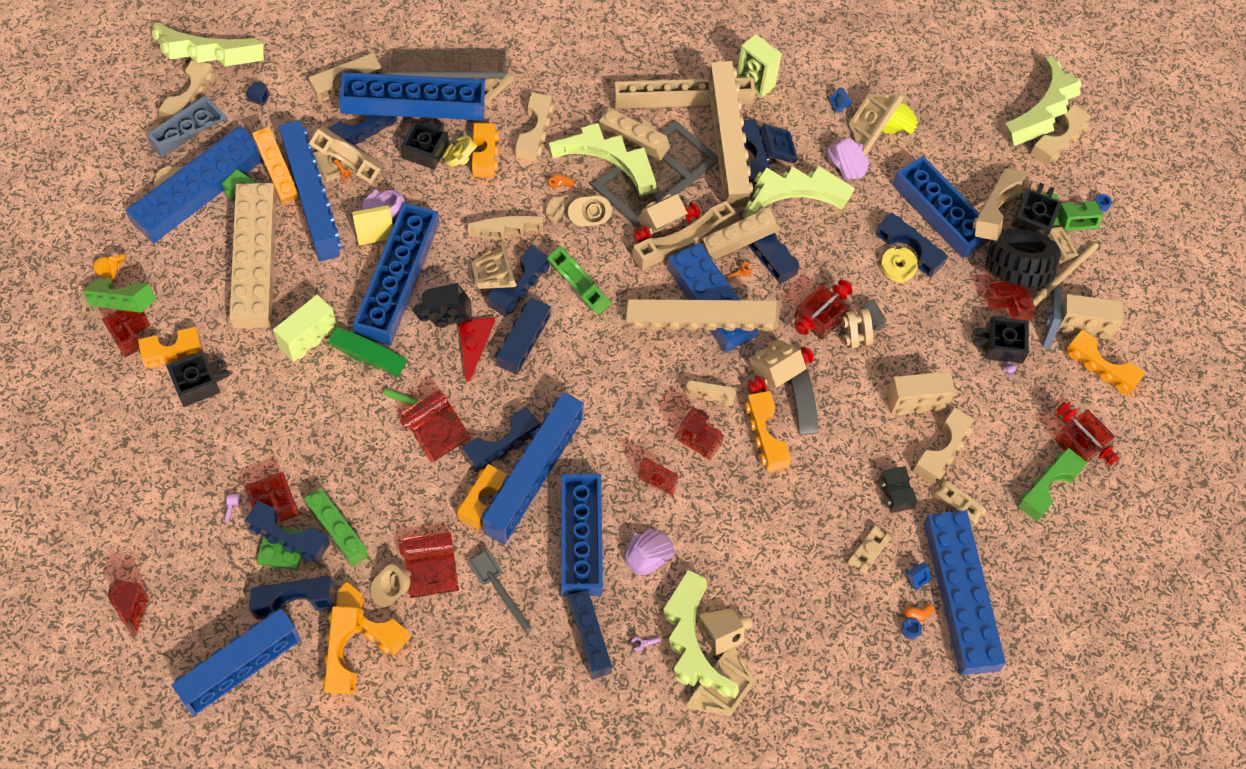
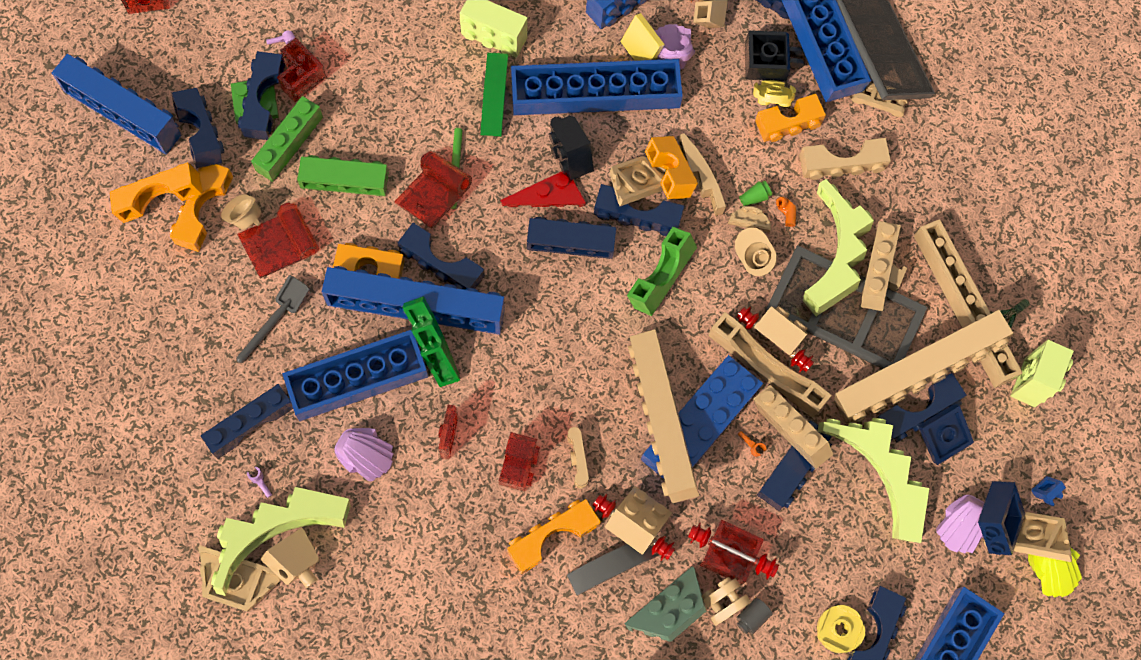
camera: 70 degrees right, 10 degrees up
(391, 493) = (343, 175): none -> bright green brick
(480, 242) = (678, 179): none -> light orange arch
(538, 196) = (757, 193): none -> bright green cone
(577, 462) = (432, 342): none -> green slope
(699, 69) = (1014, 311): none -> plant
(852, 366) = (671, 609): none -> sand green wing
(855, 130) = (1001, 518): none -> dark blue window

